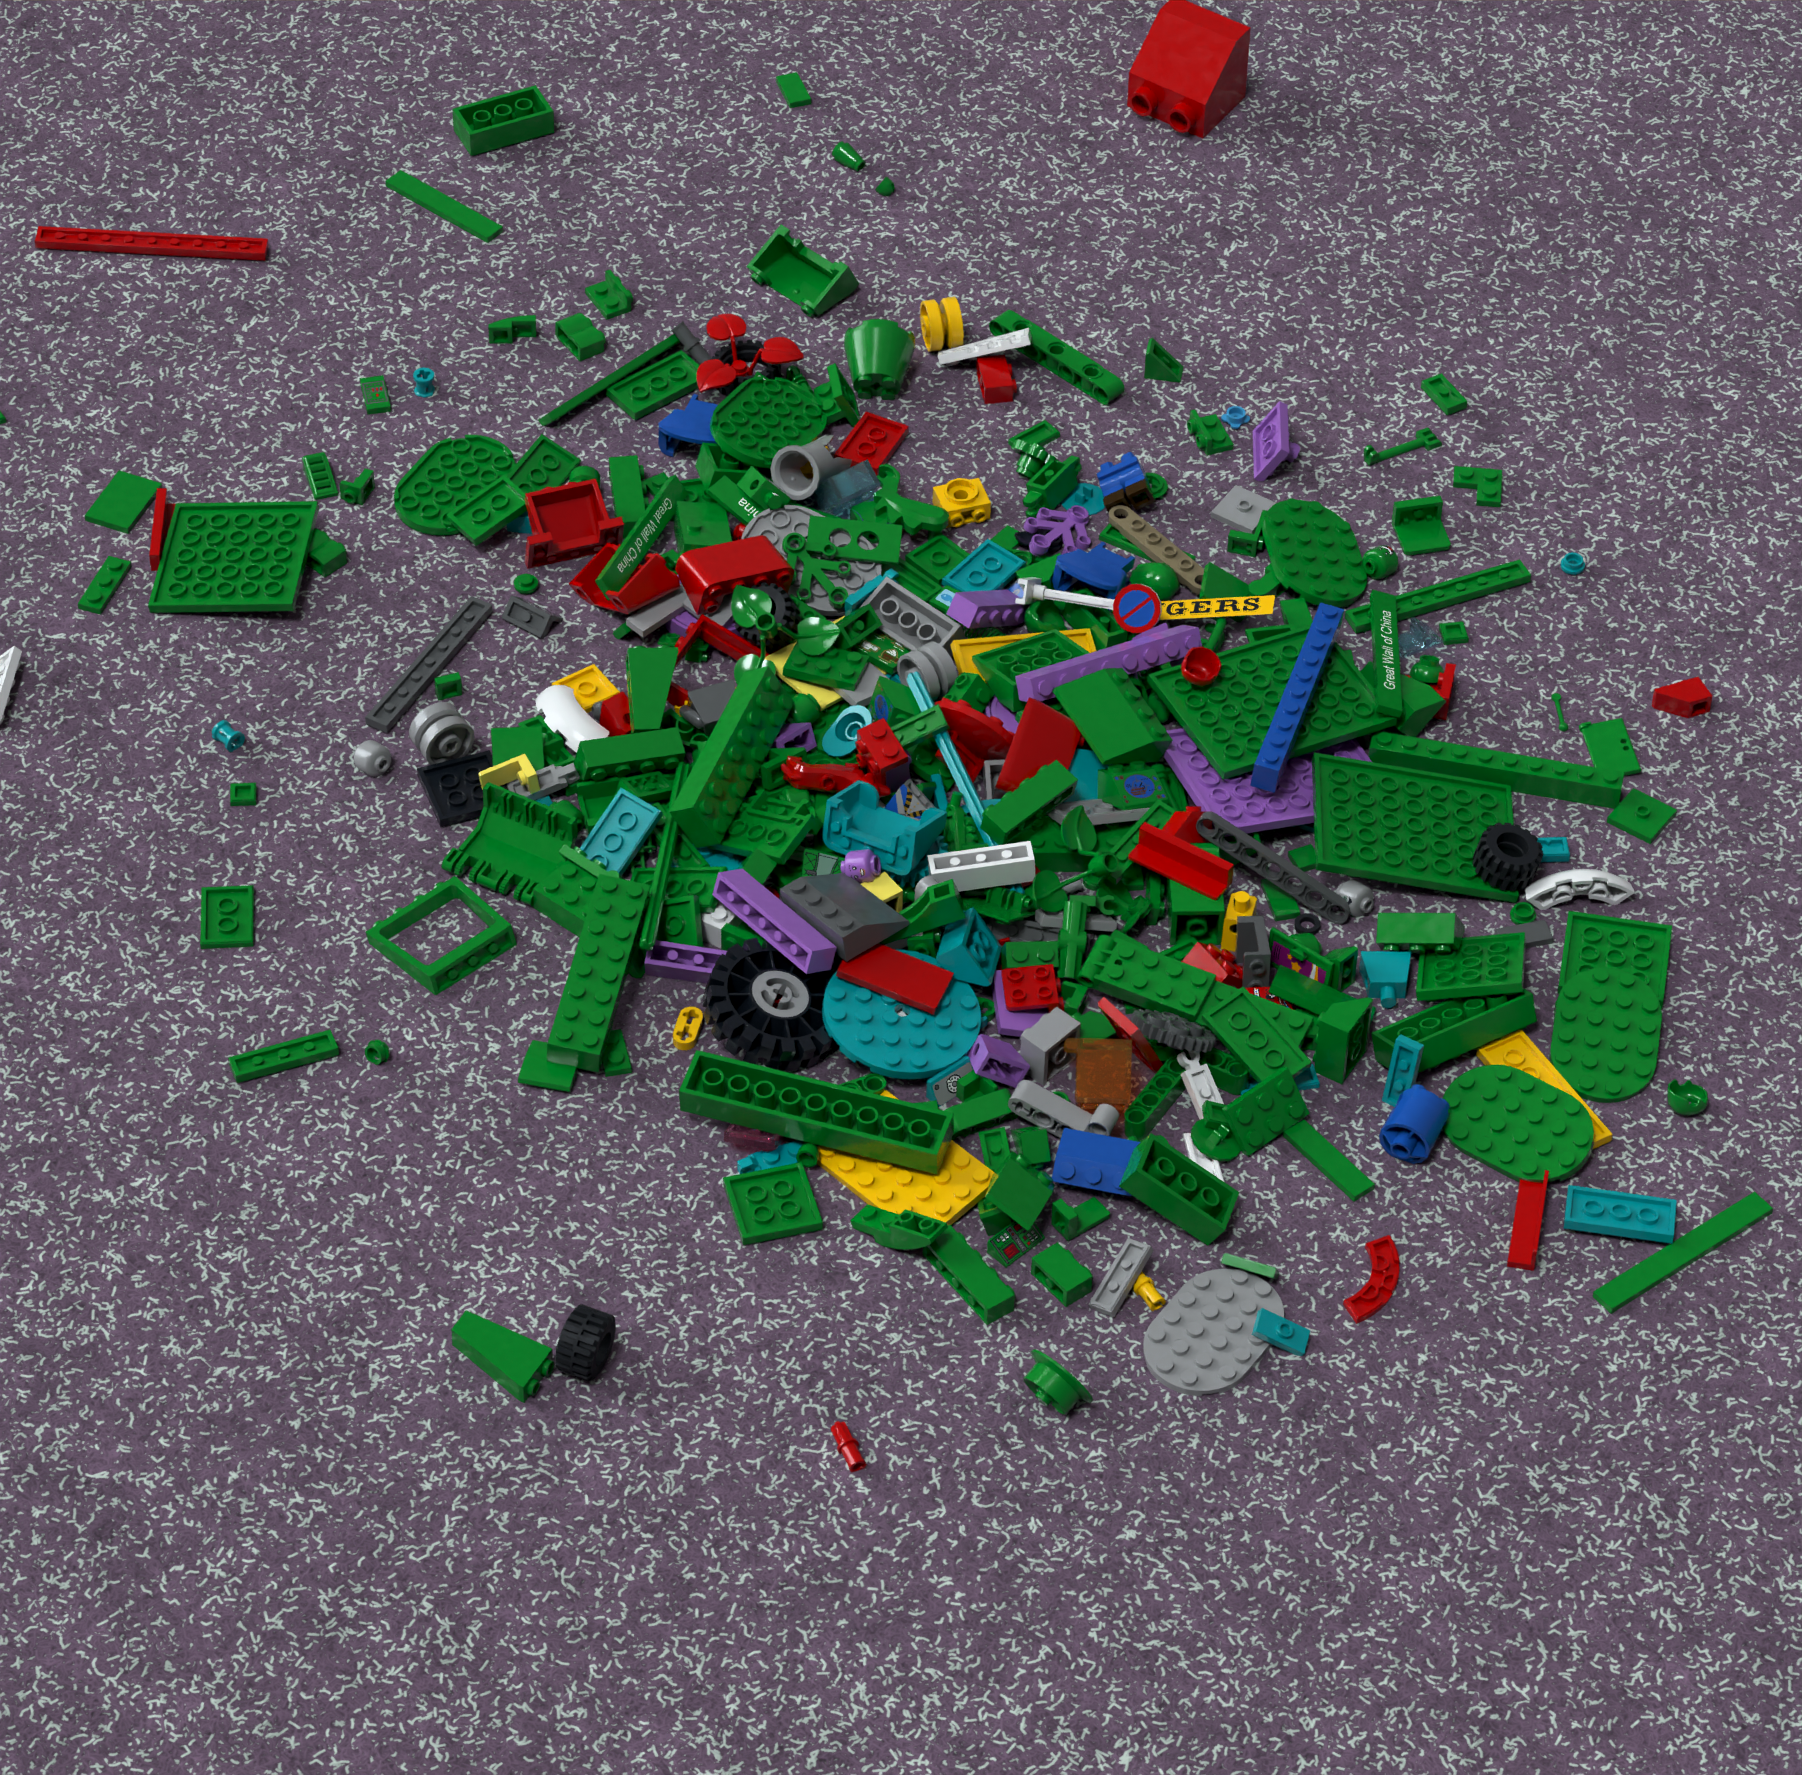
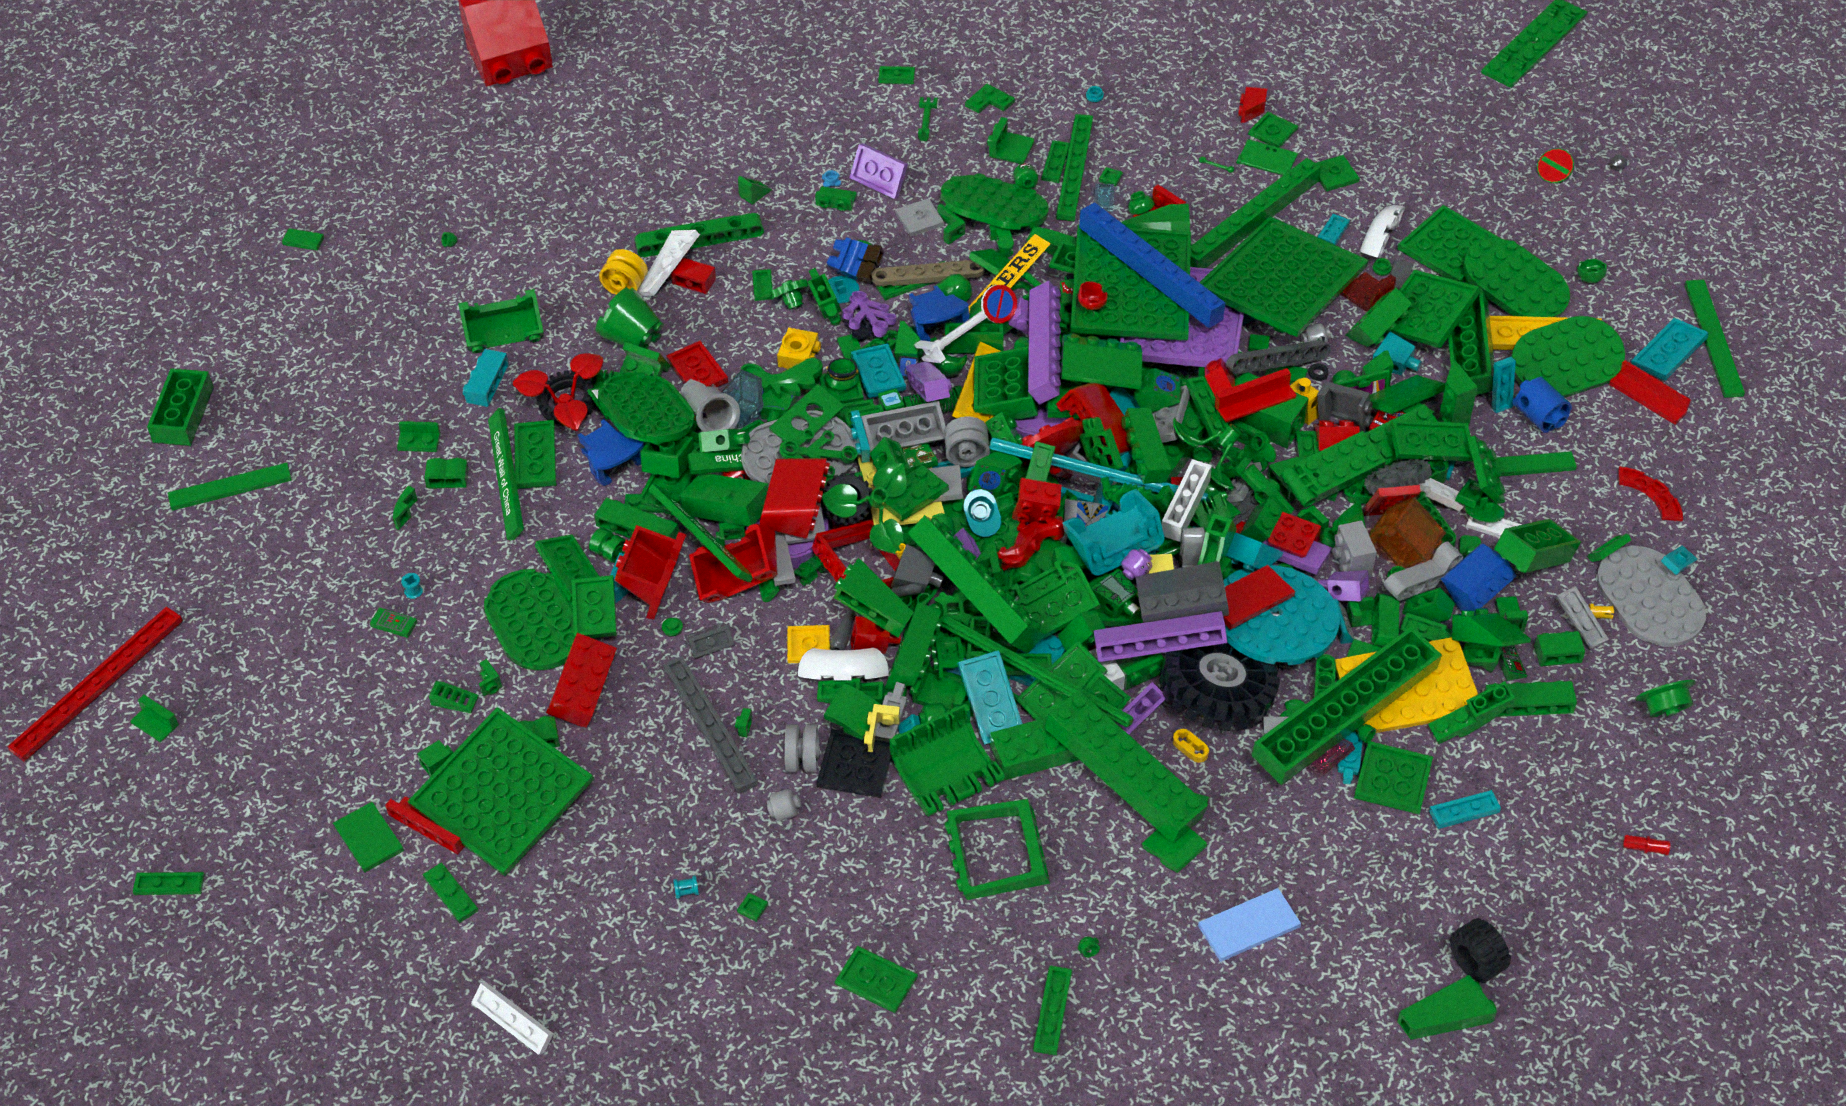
camera: 55 degrees left, 5 degrees up
(141, 300) = (154, 719): none -> green panel
(238, 492) = (434, 756): none -> green brick
(401, 546) = (581, 680): none -> red brick
(497, 1164) = (1249, 924): none -> light blue tile
(579, 858) = (1008, 720): green plate -> none
(691, 343) = (517, 414): dark grey pin -> none
(734, 298) = (485, 377): none -> teal brick
(775, 1277) = (1464, 809): none -> teal plate
(847, 156) = (401, 243): green cone -> none
(950, 546) = (842, 374): none -> green piece
(996, 767) = (1093, 429): none -> green piece
(1385, 654) = (1126, 210): green tile -> none
(1431, 576) = (1055, 161): none -> green tile
(1475, 913) = (1367, 290): none -> clear red bracket
(1507, 856) = (1344, 244): black tyre -> none
(1663, 736) = (1273, 130): none -> green tile

